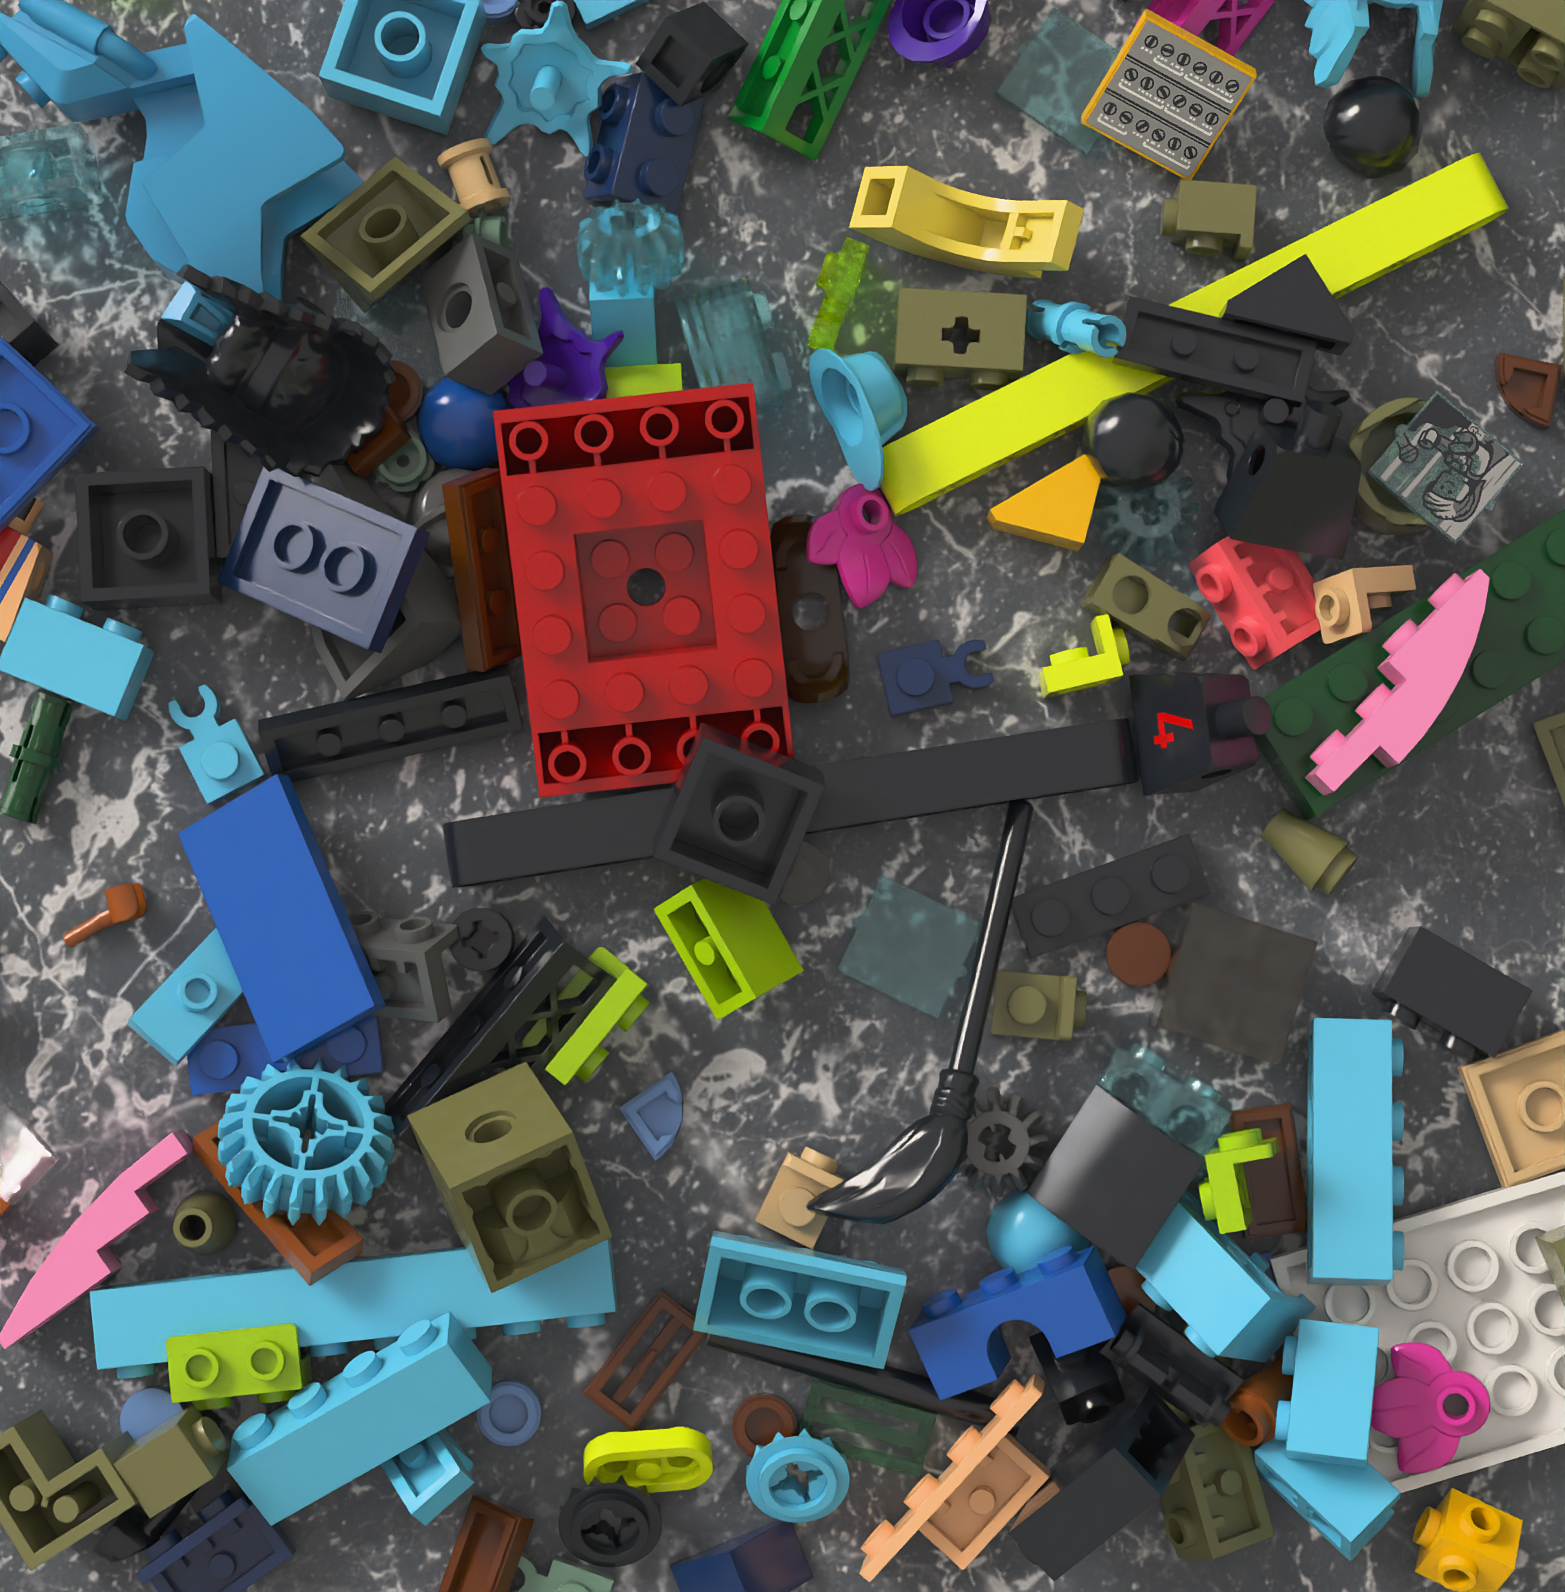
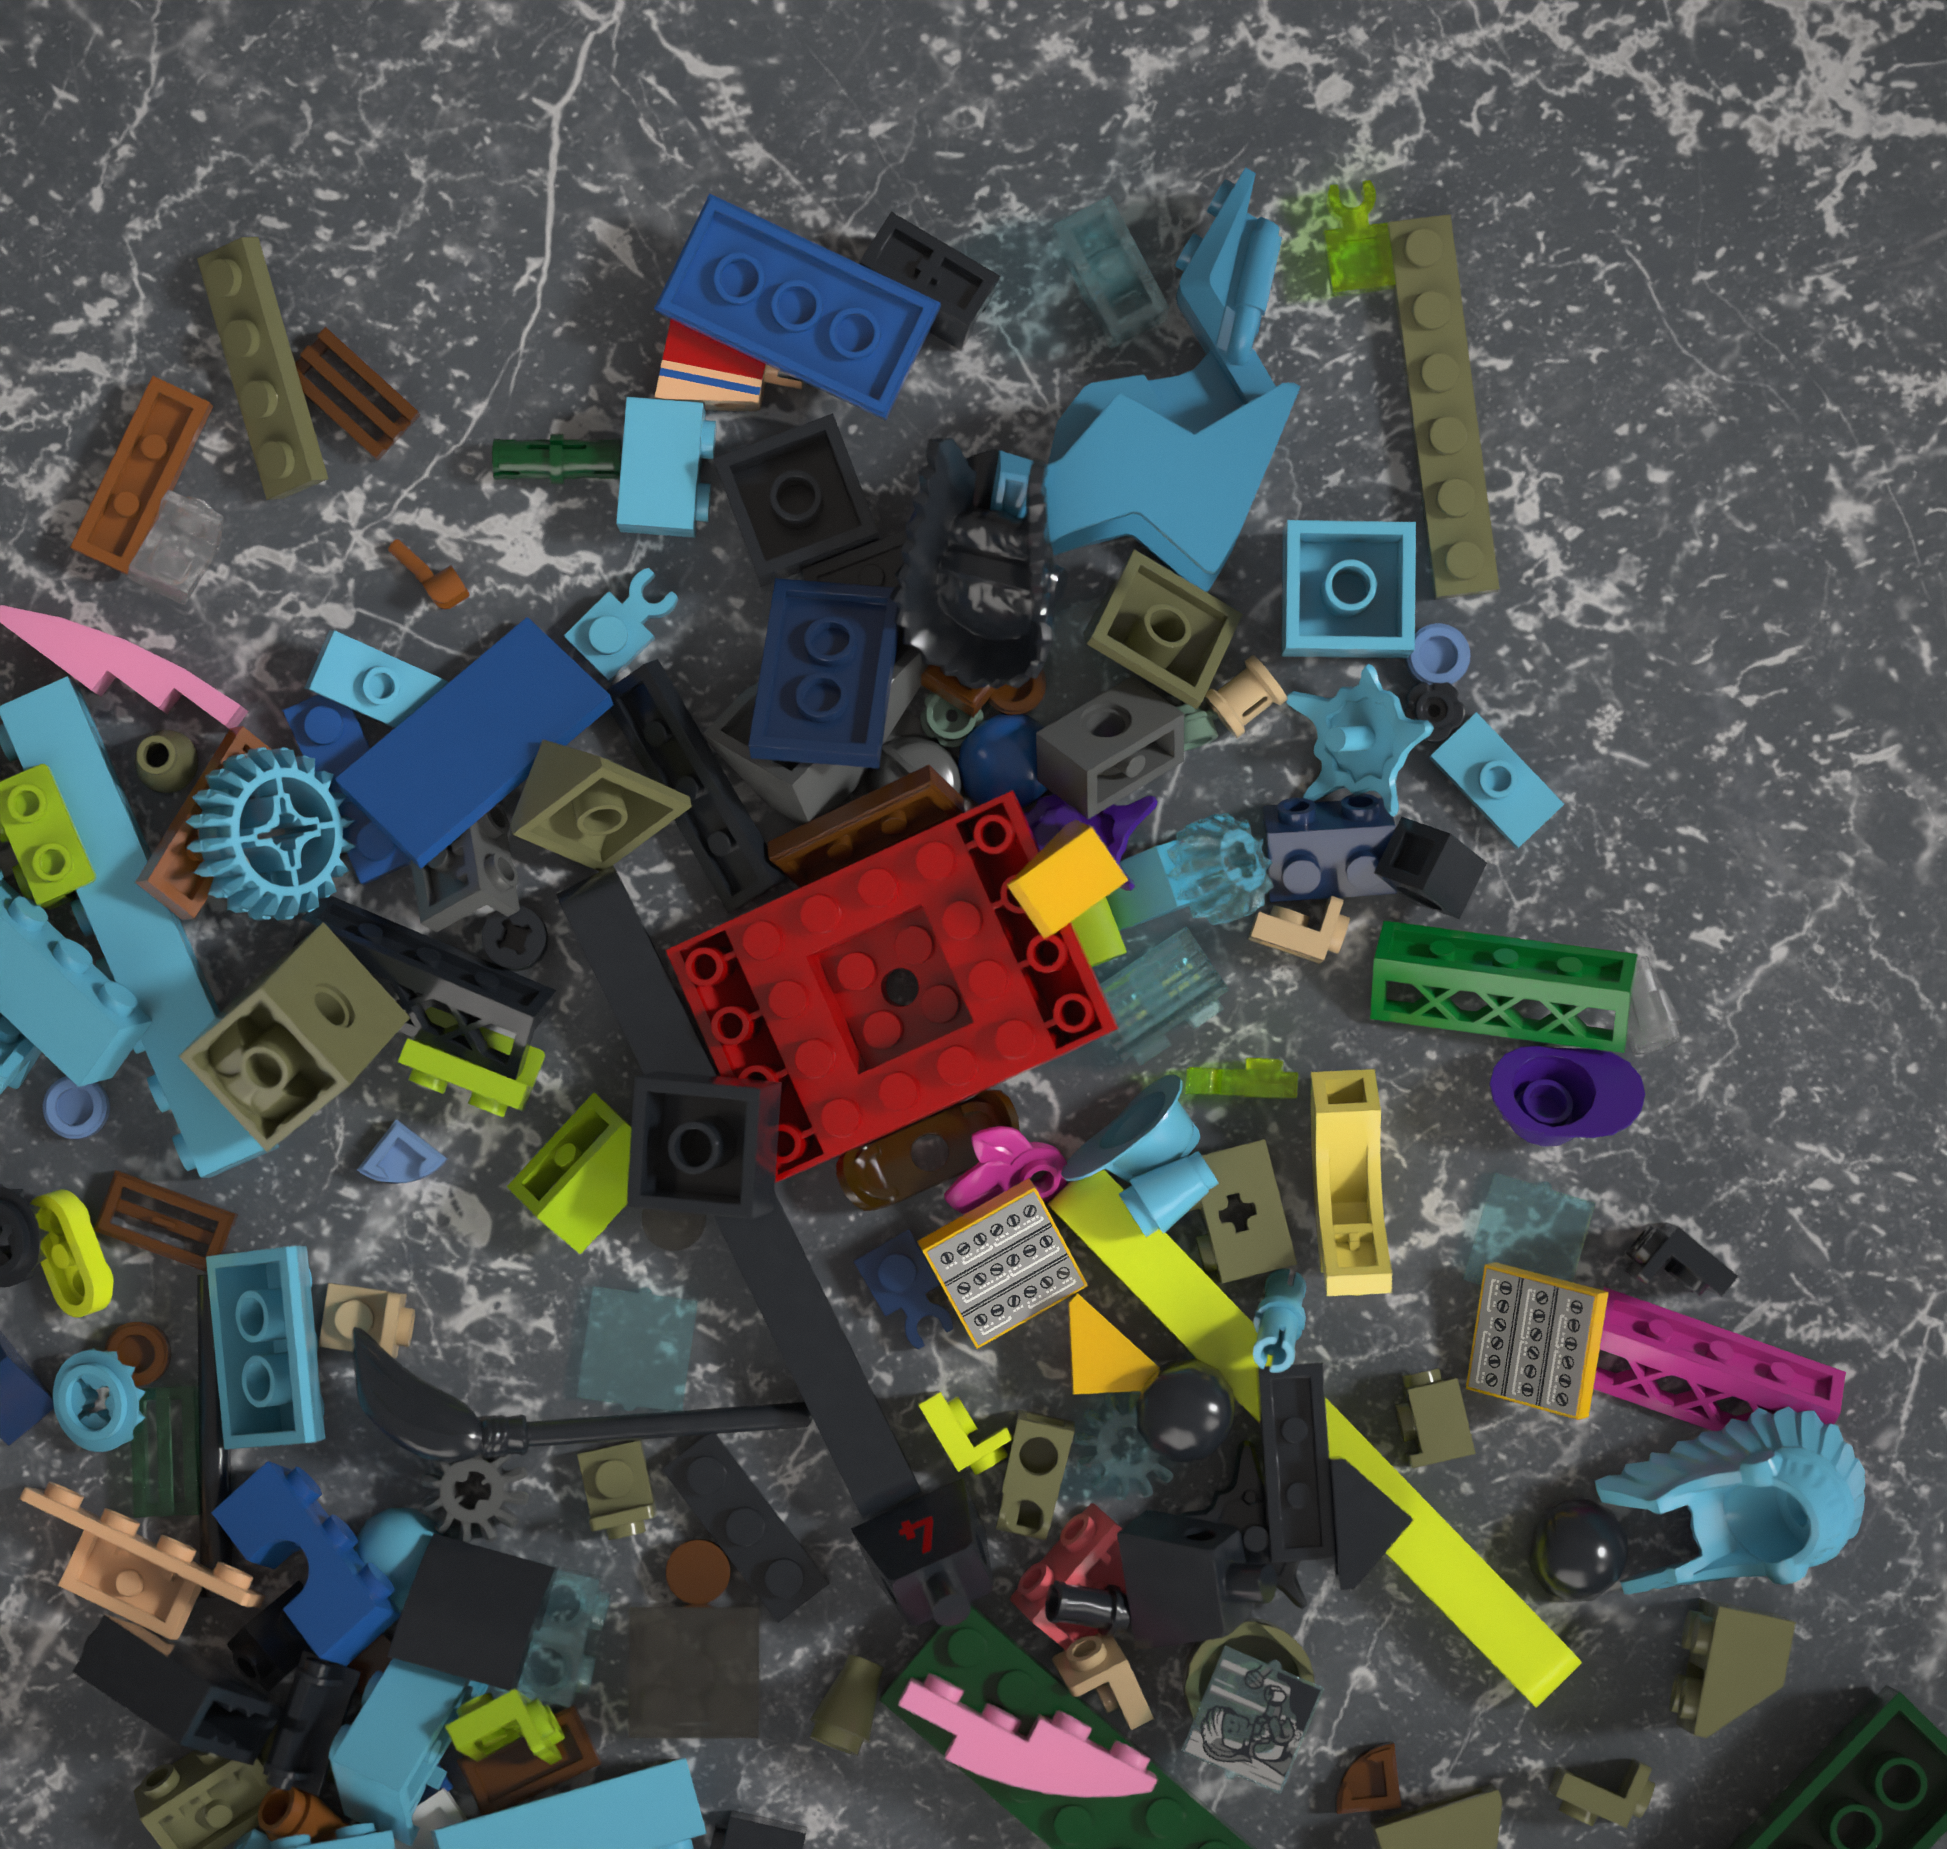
camera: 70 degrees right, 0 degrees up
(378, 823) = (591, 806): none -> olive slope
(592, 379) = (1066, 878): none -> yellow slope
(712, 207) = (1289, 933): none -> tan bracket
(922, 392) = (1168, 1192): none -> medium azure cone
(938, 572) = (1002, 1263): none -> tile
(1294, 580) = (1088, 1607): none -> black pin

